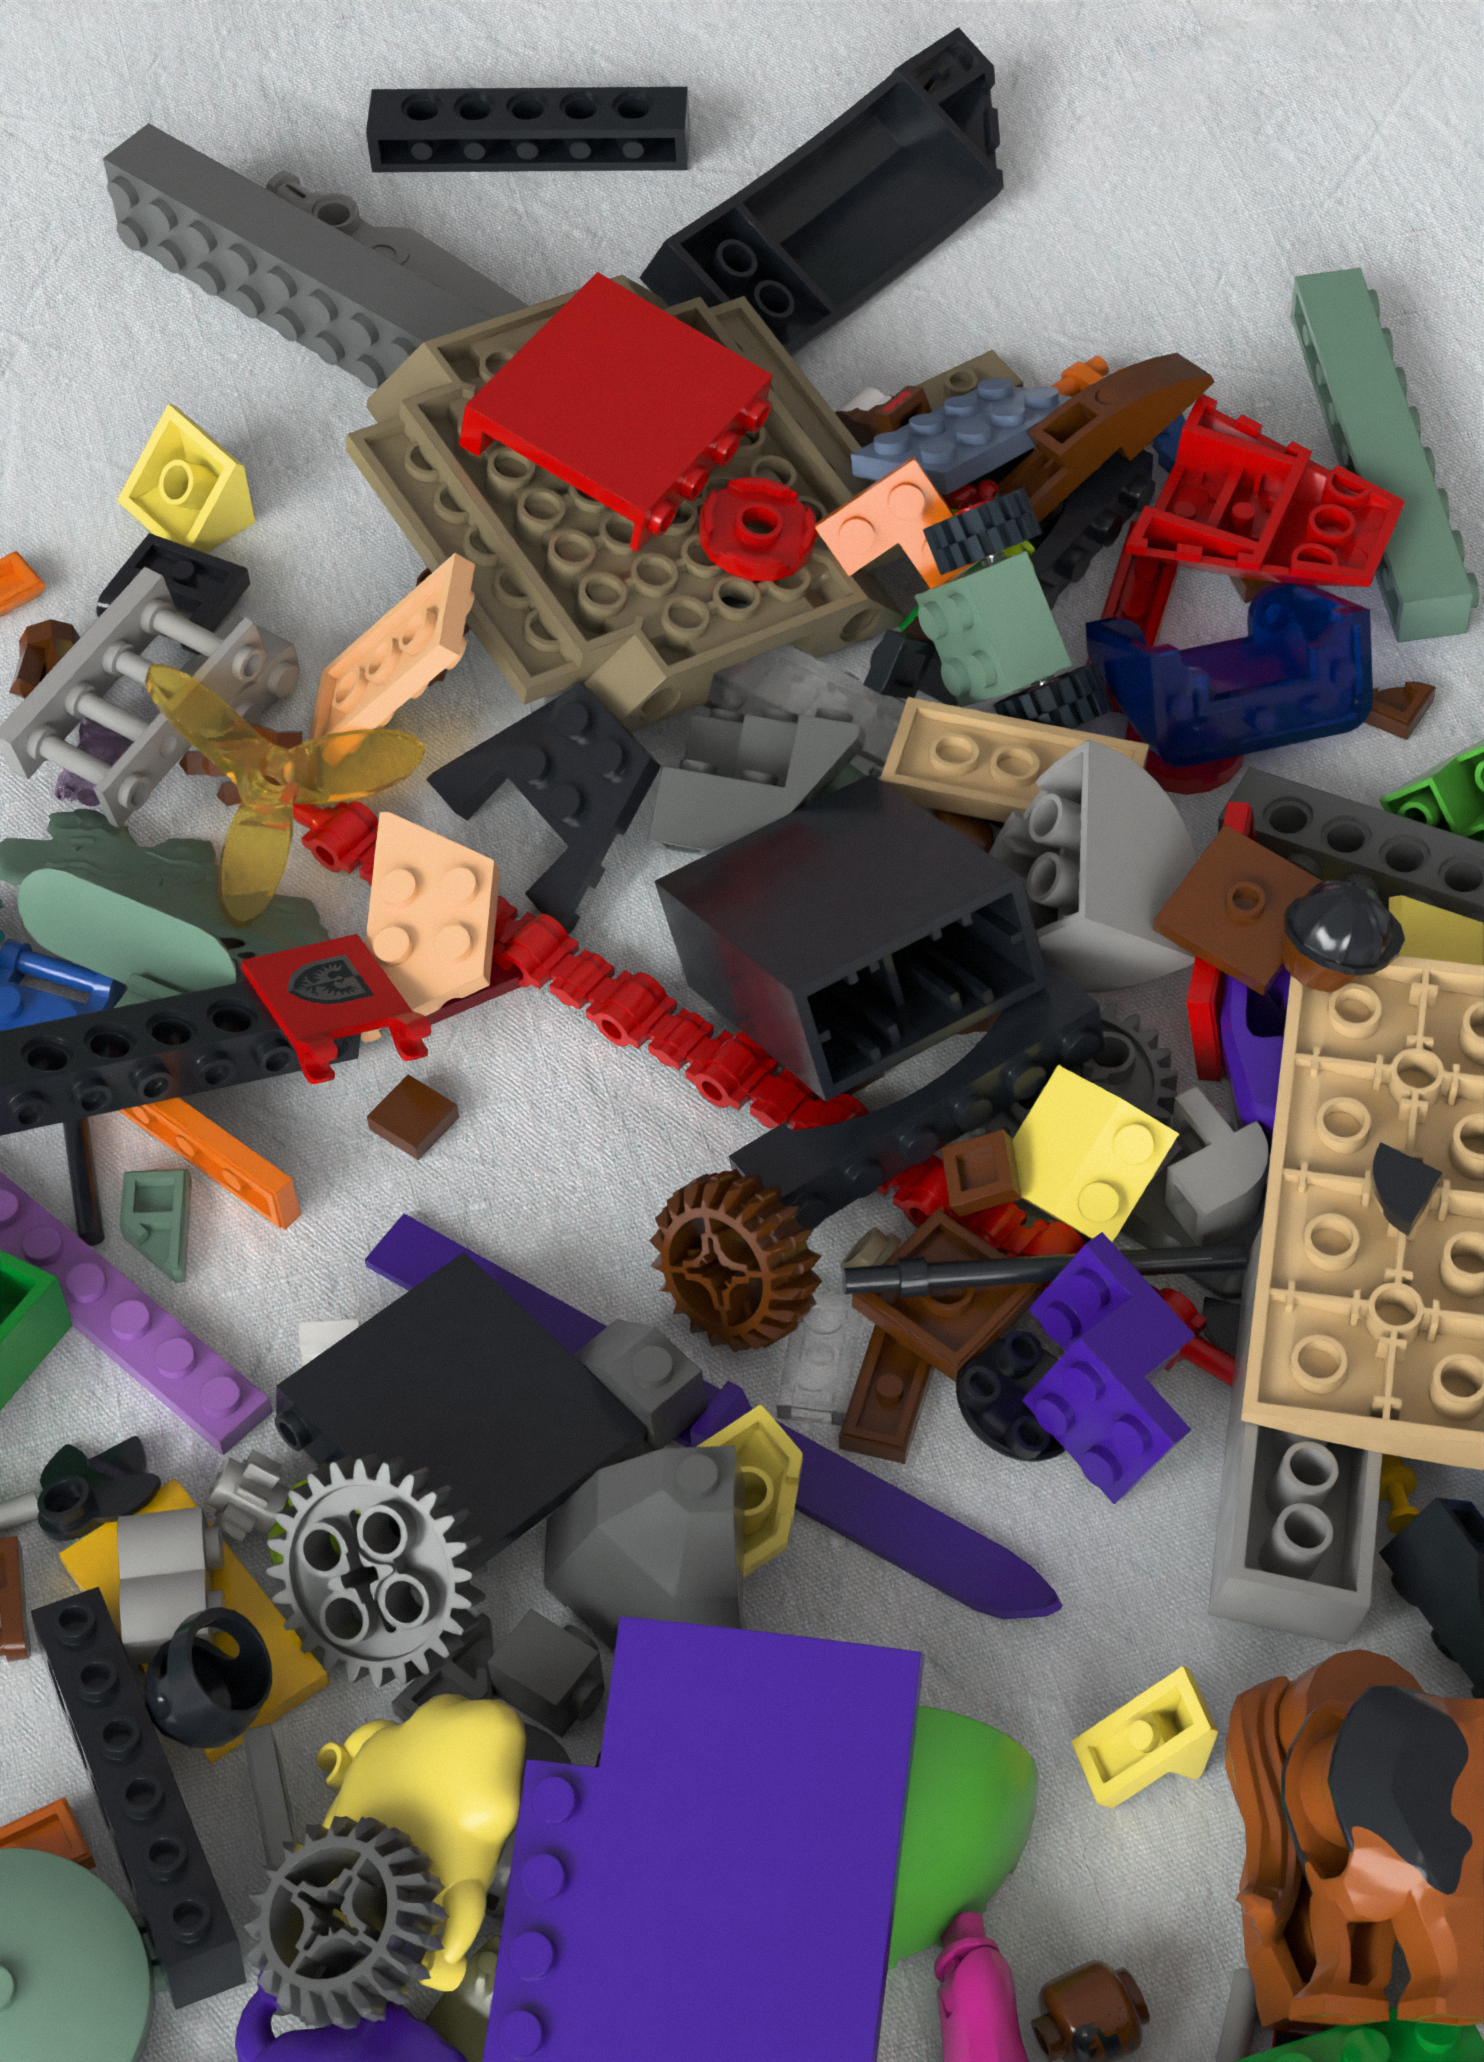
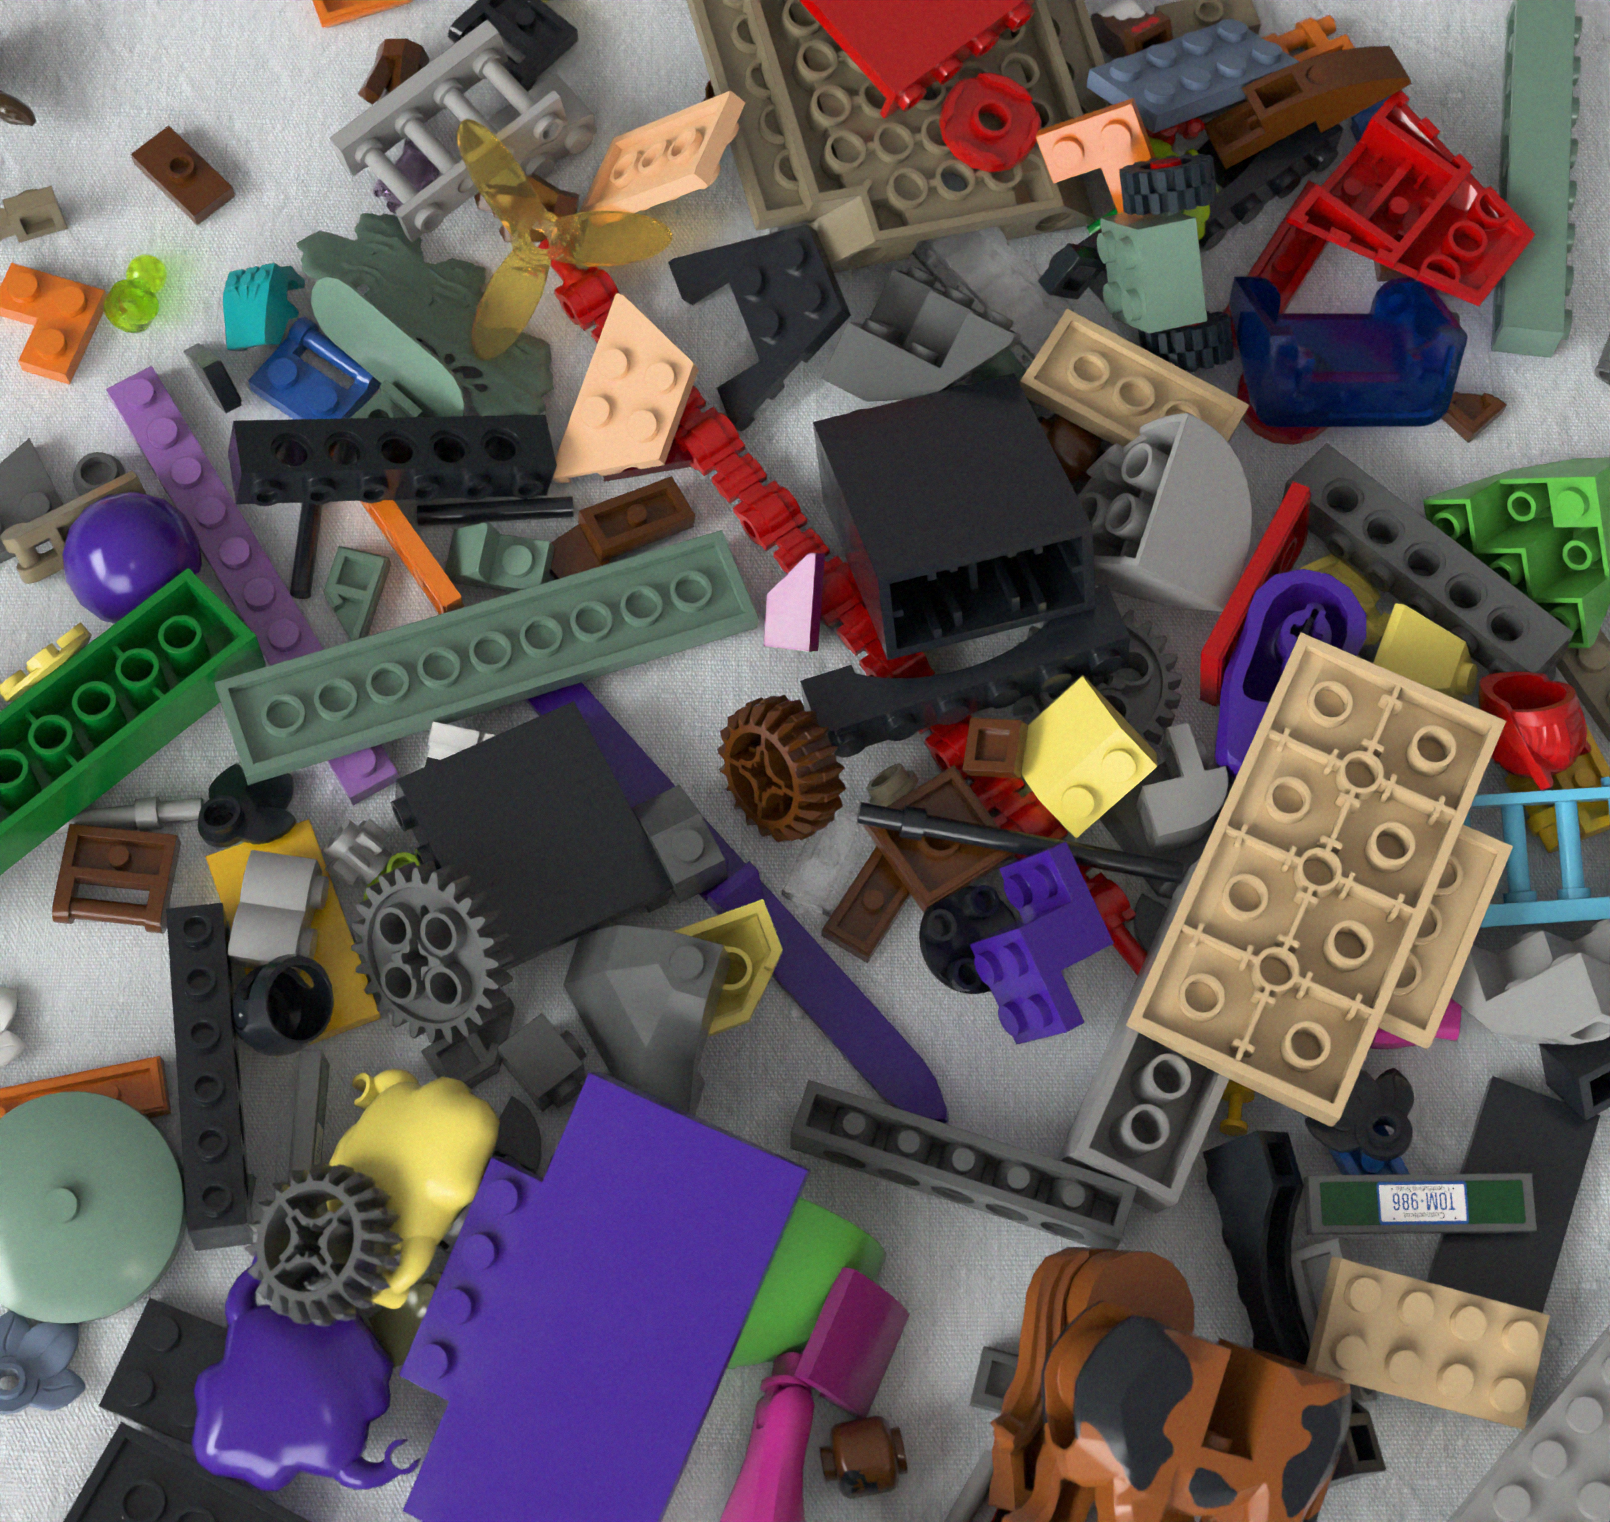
camera: 10 degrees right, 15 degrees up
(300, 1090) = (495, 511): none -> black bar
(324, 1137) = (497, 561): none -> sand green slope
(332, 994) = (533, 445): red flag -> none
(334, 1242) = (484, 656): none -> sand green plate
(476, 1051) = (636, 518): none -> reddish brown plate
(694, 1092) = (795, 607): none -> tile
(1033, 1877) = (852, 1343): none -> magenta slope
(1097, 1641) = (962, 1166): none -> dark grey brick
(1146, 1738) = (974, 1253): light yellow slope -> none
(1216, 1886) = (993, 1379): none -> dark grey tile
(1235, 908) = (1271, 588): reddish brown plate -> none
(1338, 935) = (1337, 640): black piece -> none
(1402, 1186) = (1314, 871): black tile -> none

